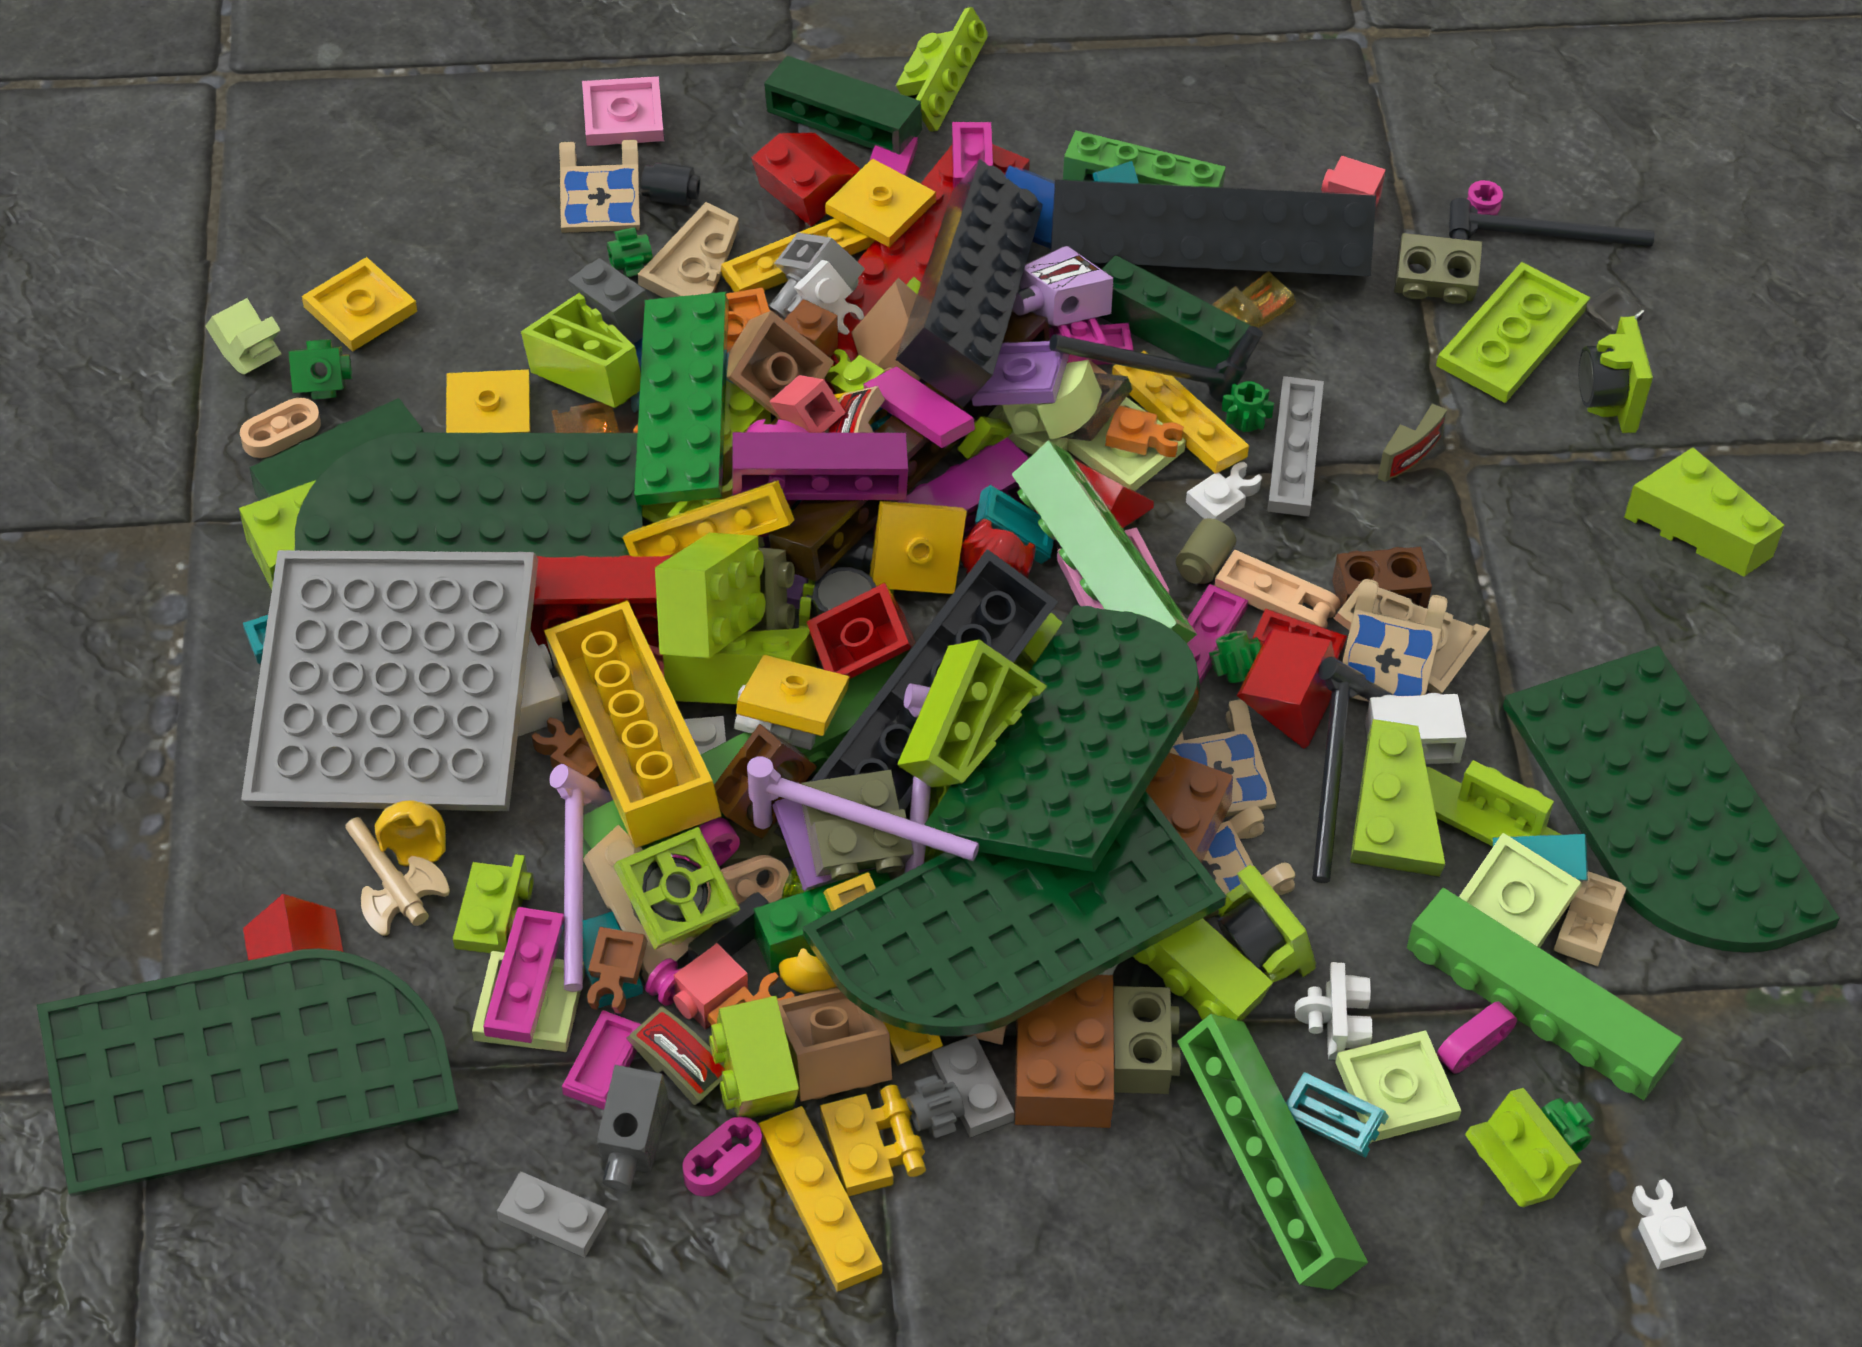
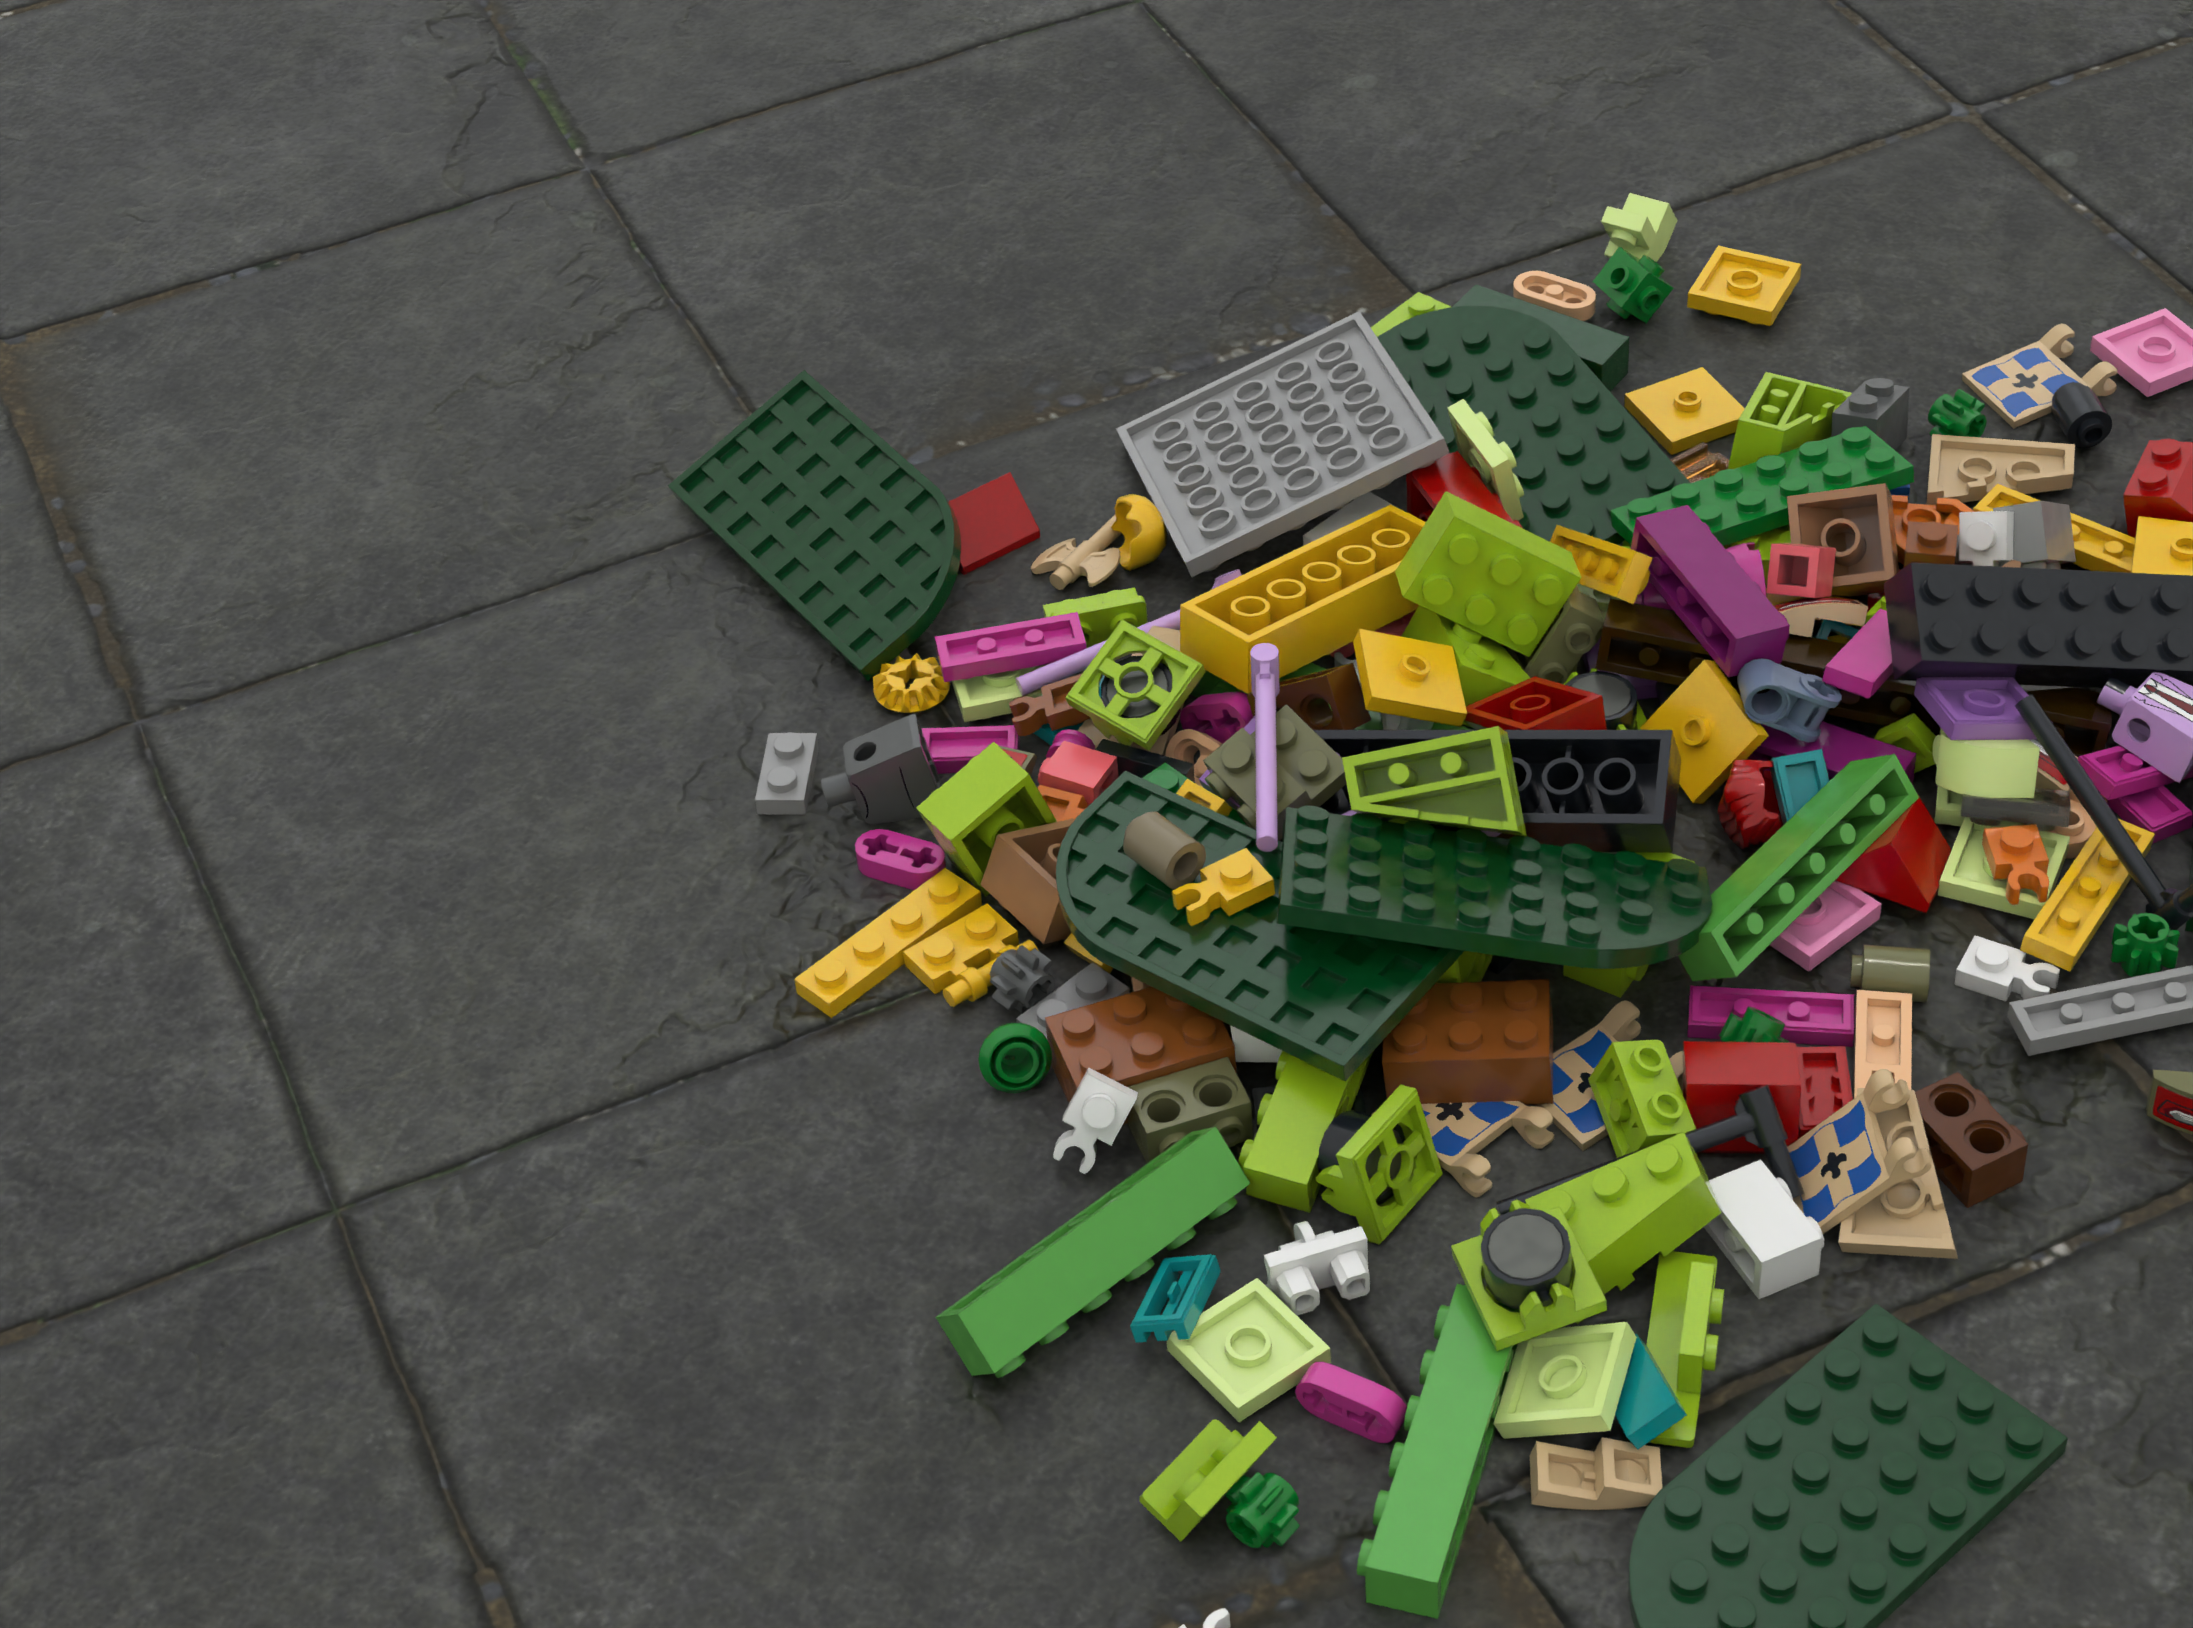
camera: 75 degrees right, 10 degrees down
(494, 1094) = (923, 694): none -> yellow gear
(546, 538) = (1491, 459): none -> yellowish green plate
(939, 477) = (1794, 702): none -> sand blue piece
(939, 926) = (1164, 849): none -> dark tan brick
(996, 897) = (1227, 884): none -> yellow plate
(1020, 1140) = (1015, 1057): none -> green cone
(1133, 1099) = (1096, 1113): none -> white plate
(1280, 746) = (1639, 1095): none -> lime bracket
(1449, 865) = (1528, 1268): none -> piece

